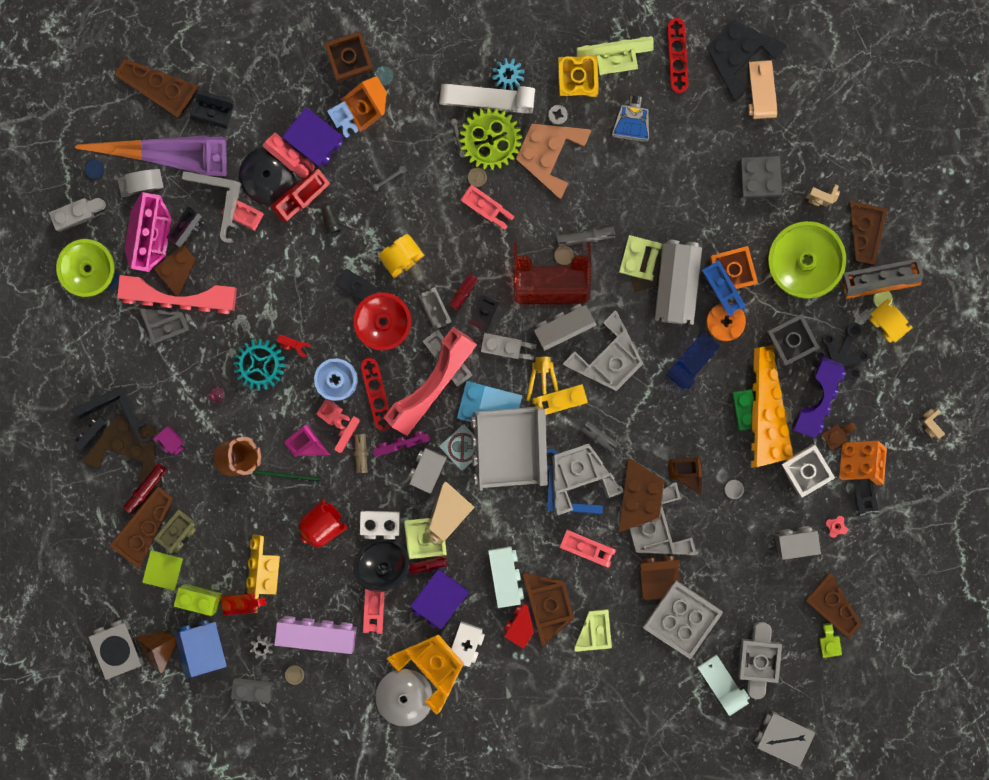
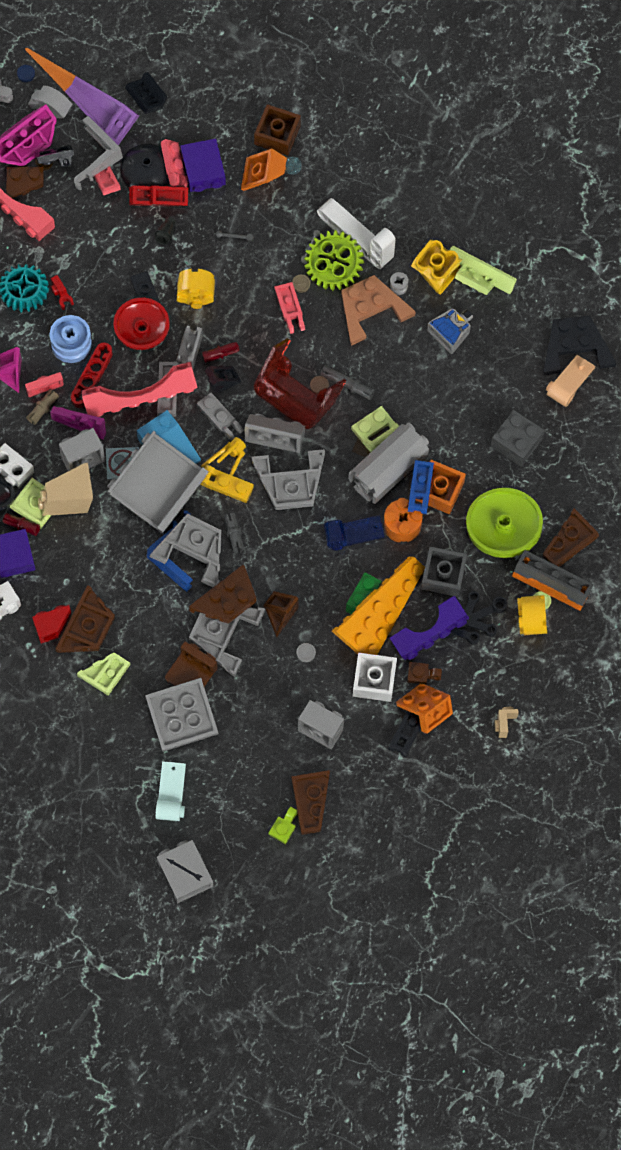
camera: 40 degrees right, 20 degrees down
(165, 90) = (121, 52): reddish brown wing -> none
(331, 414) = (46, 361): coral plate -> none
(341, 116) = (236, 167): light blue plate -> none
(502, 71) = (385, 222): medium azure gear -> none
(505, 576) = (72, 577): light aqua brick -> none
(587, 548) = (153, 606): coral plate -> none
(680, 55) = (523, 309): red beam -> none
(759, 660) = (215, 792): light grey brick -> none
(818, 197) = (553, 486): tan bracket -> none
(831, 526) = (369, 738): coral plate -> none

